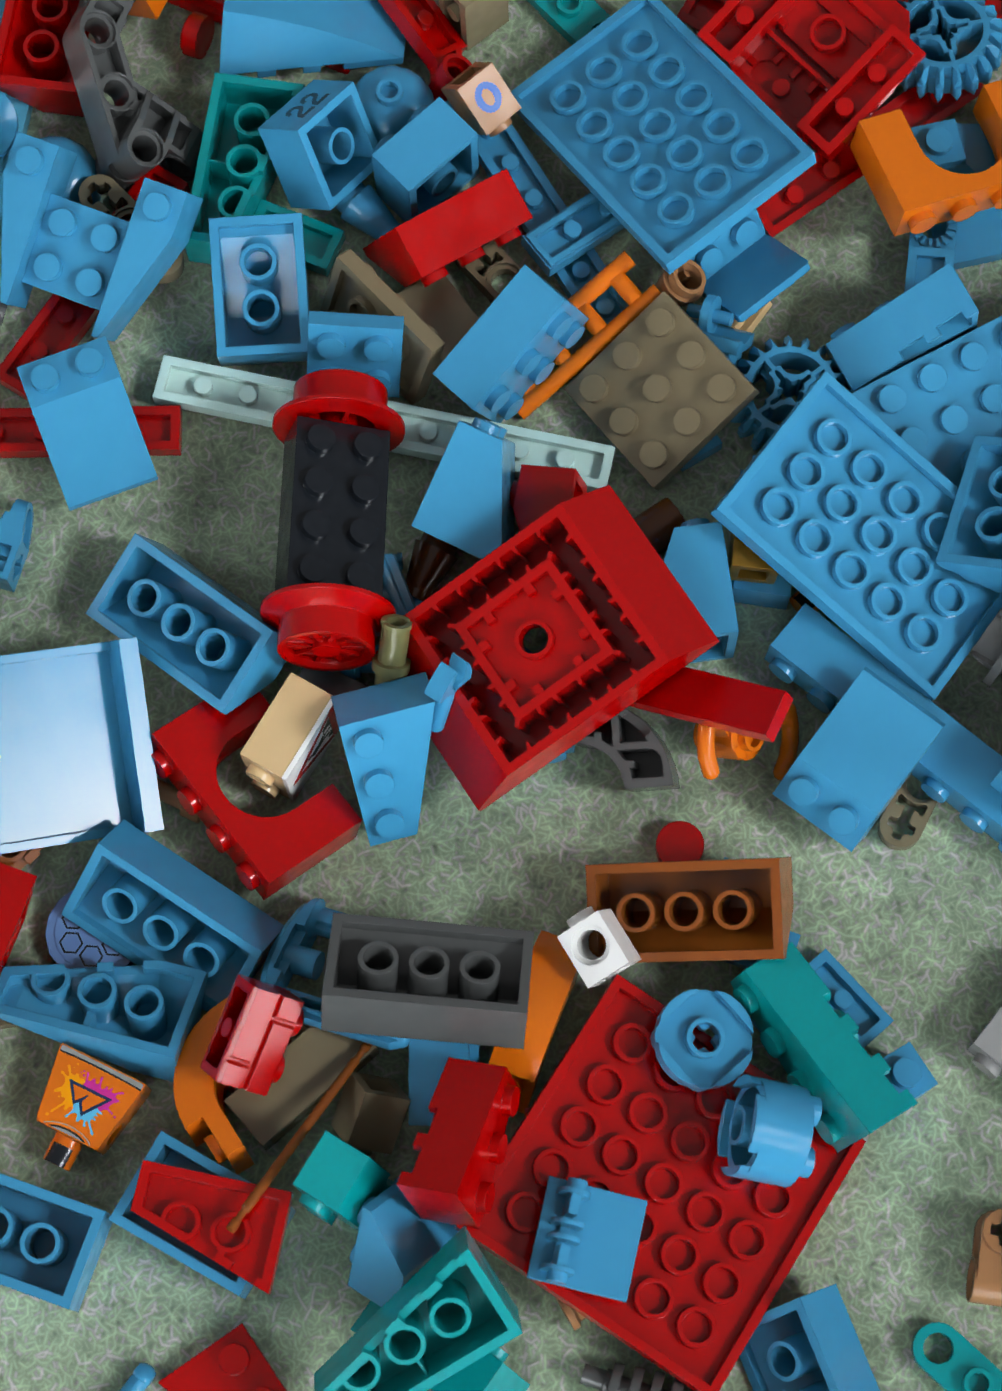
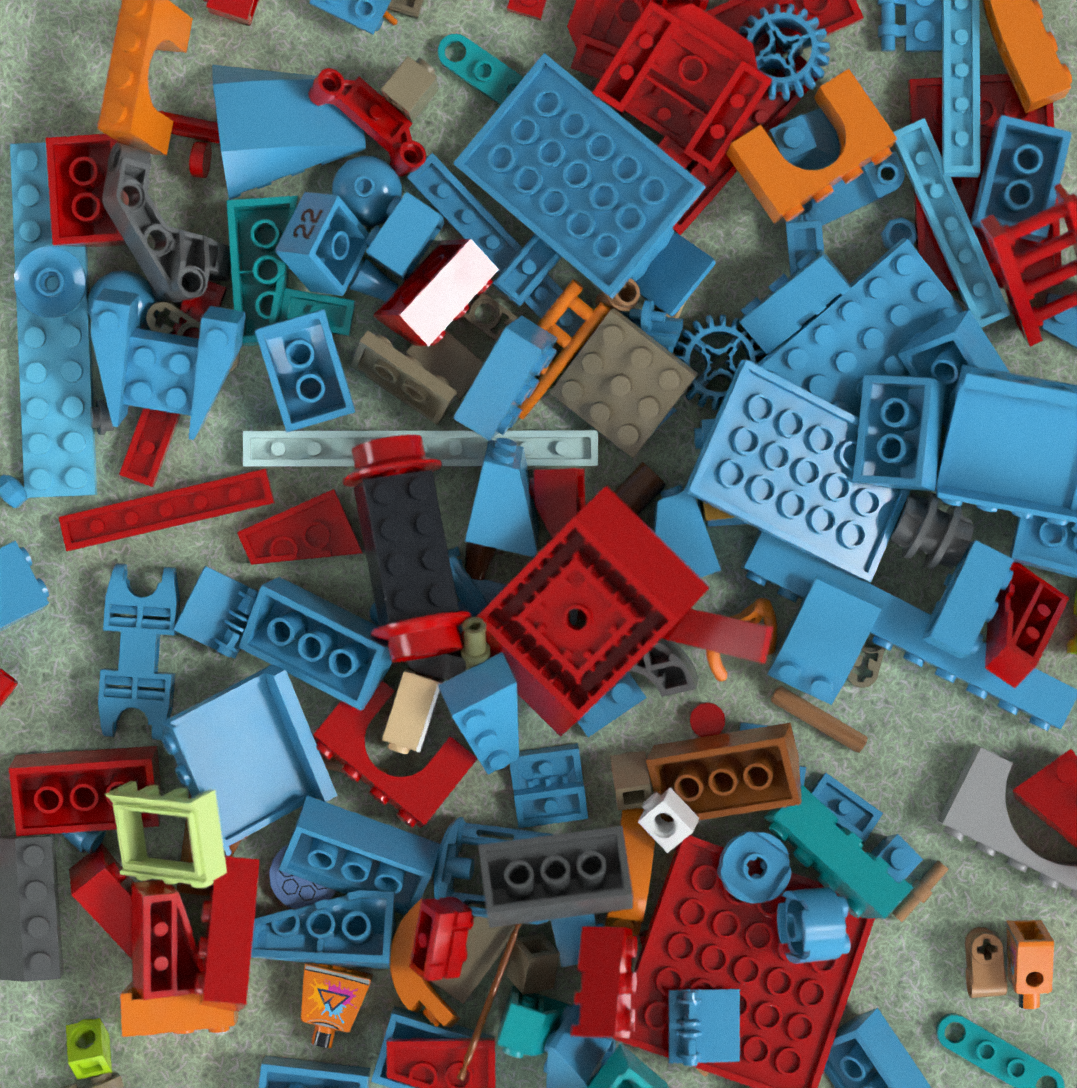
camera: 15 degrees left, 15 degrees up
(68, 566) = (217, 612): none -> dark azure hinge
(87, 423) = (202, 503): dark azure slope -> none
(210, 496) = (302, 532): none -> red wing
(358, 344) = (389, 410): dark azure plate -> none
(443, 687) = (521, 667): dark azure bar -> none
(448, 880) = (548, 786): none -> dark azure slope
(482, 99) = (437, 178): brick -> none
(552, 795) = (613, 704): none -> dark azure plate
(558, 893) = (630, 779): none -> dark tan brick
(831, 877) = (819, 719): none -> medium nougat axle
(925, 1139) = (920, 891): none -> medium nougat bar

